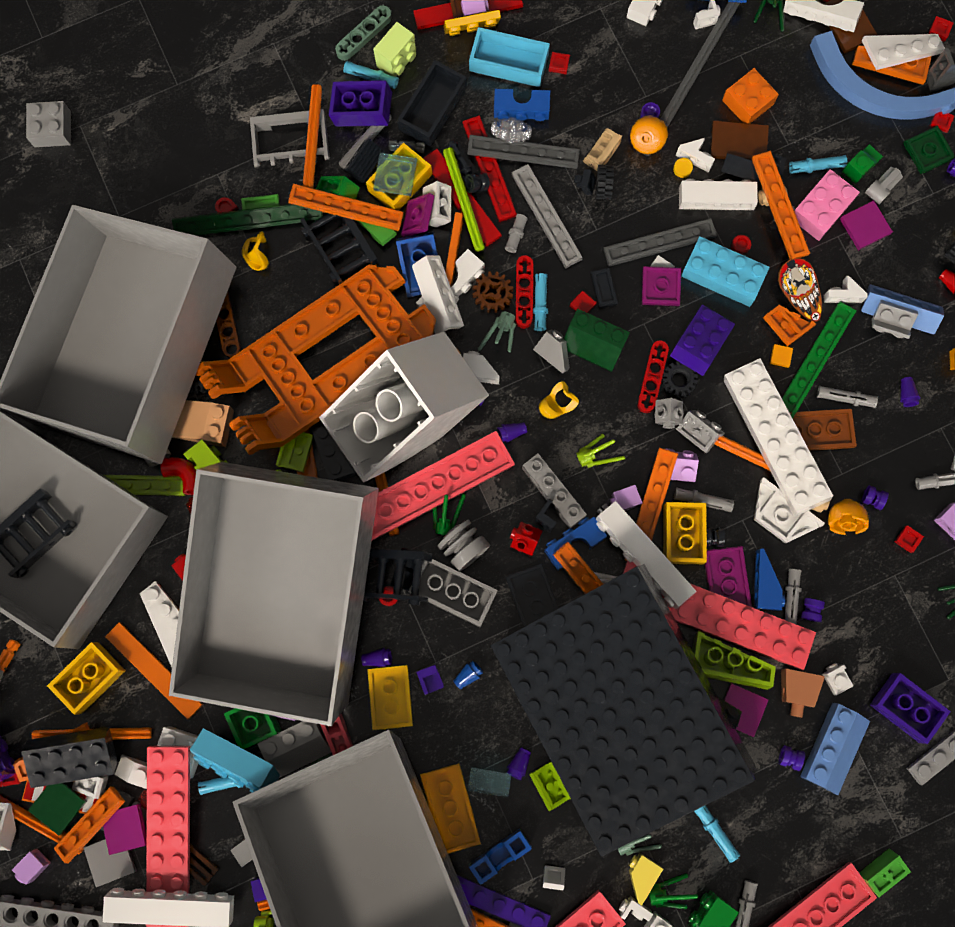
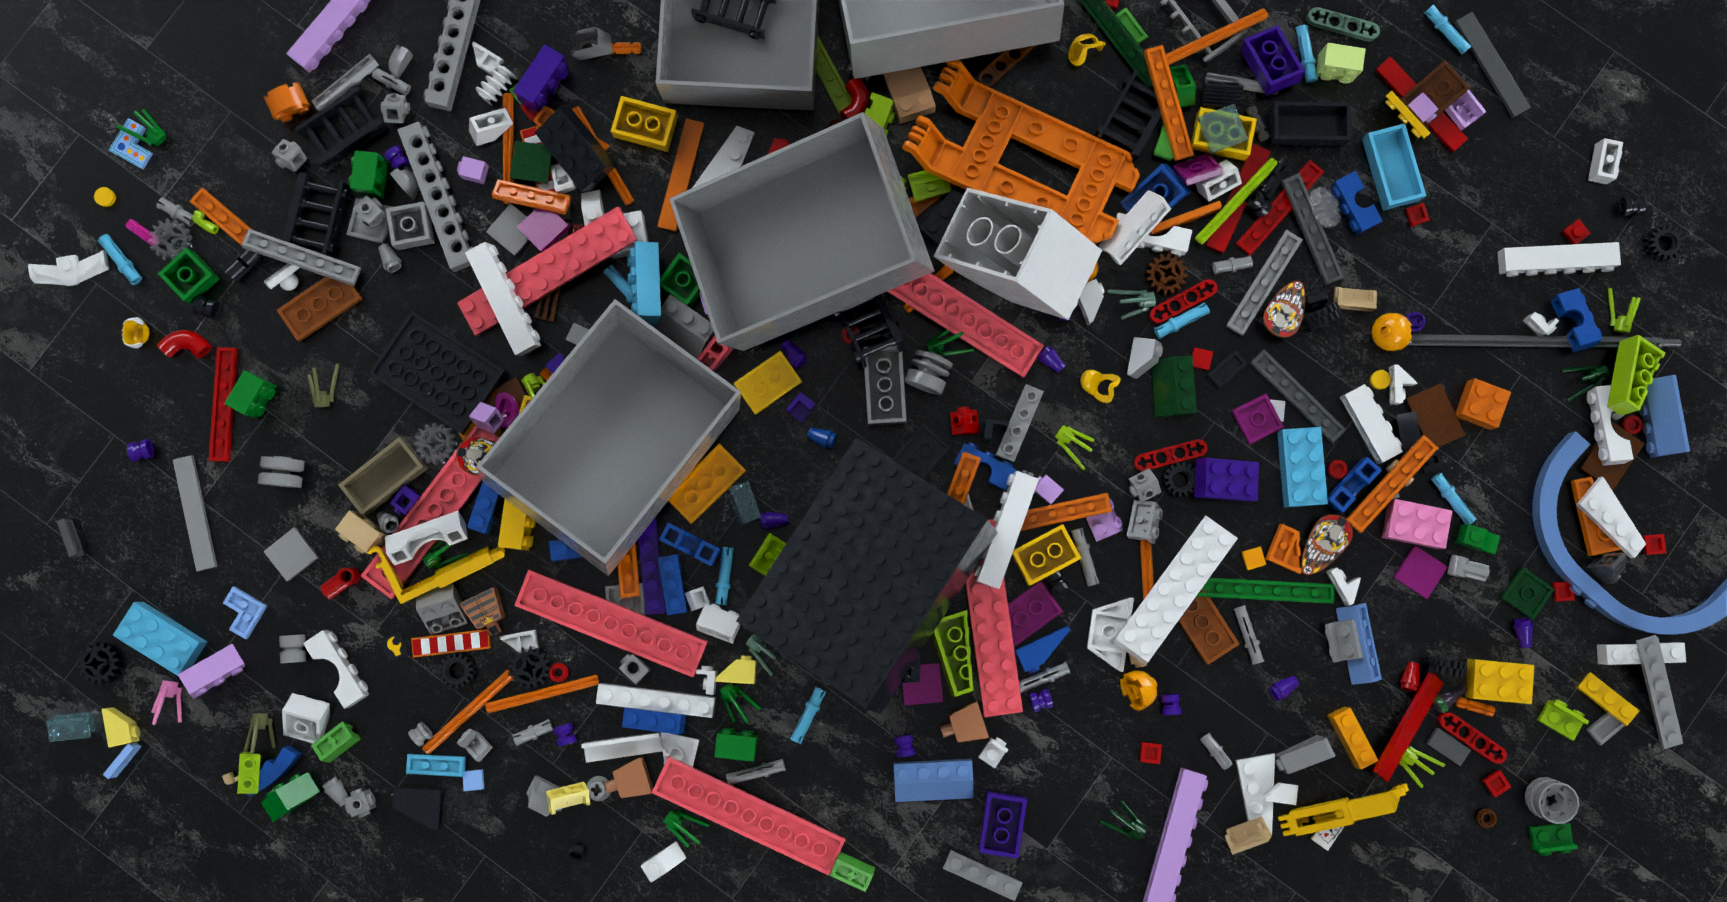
camera: 60 degrees right, 5 degrees up
(529, 895) = (672, 584): none -> blue arch
(546, 839) = (724, 576): none -> medium azure pin
(581, 210) = (1286, 310): none -> shield
(587, 870) = (718, 623): none -> white brick
(757, 227) = (1359, 476): none -> blue arch

